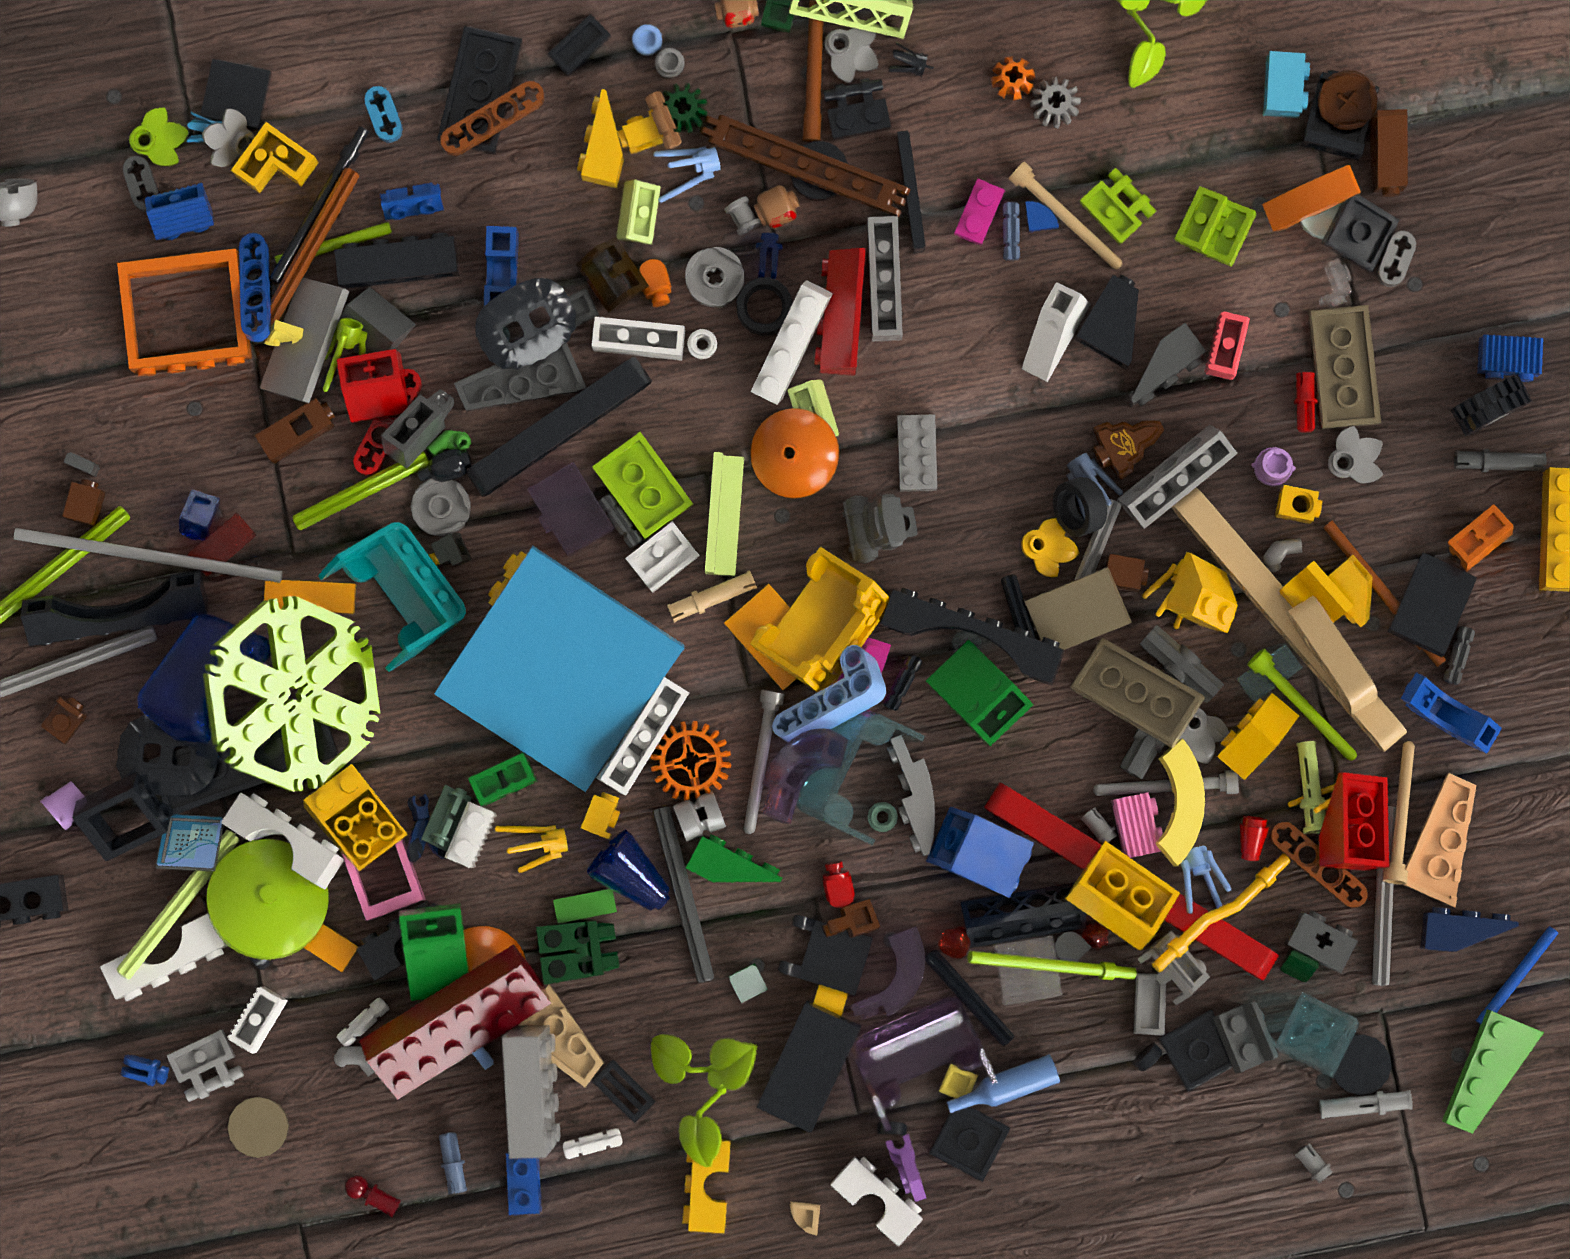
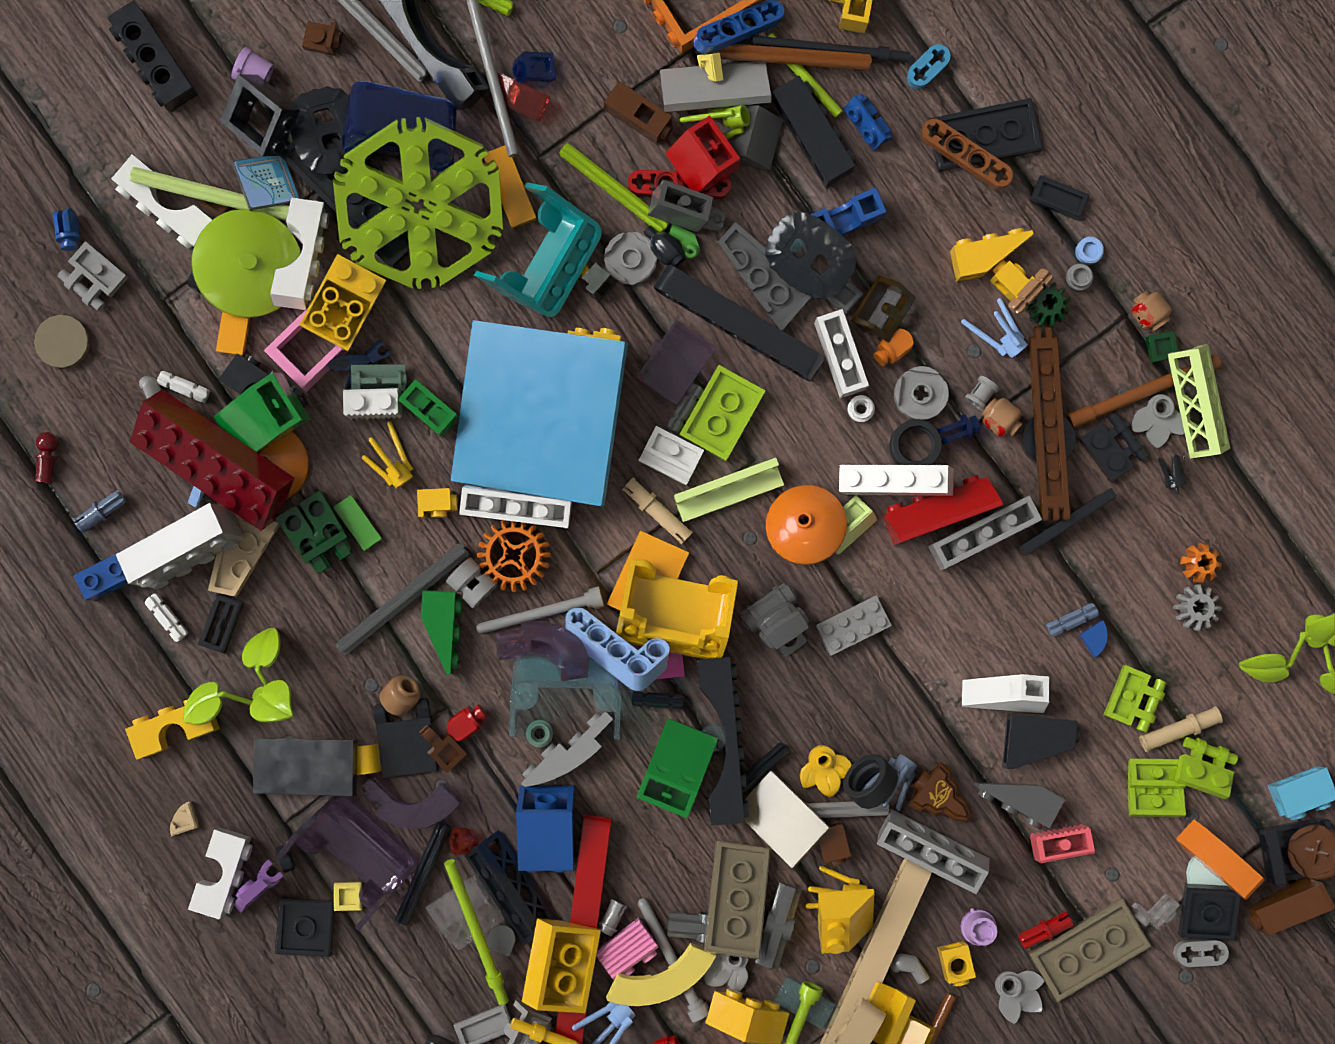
camera: 60 degrees right, 0 degrees up
(257, 1019) = (145, 300): white brick -> none
(629, 872) = (399, 546): clear blue cone -> none
(638, 212) = (945, 308): yellowish green slope -> none
(747, 982) = (354, 684): slope -> none
(780, 938) = (400, 695): none -> medium nougat head
(979, 212) = (1076, 586): dark pink plate -> none
(1010, 1084) = (365, 941): medium blue piece -> none
(1025, 178) = (1122, 610): tan piece -> none
(1095, 935) = (520, 956): clear red plate -> none
(1168, 175) = (1191, 725): none -> tan pin
(1224, 174) = (1203, 775): none -> lime plate

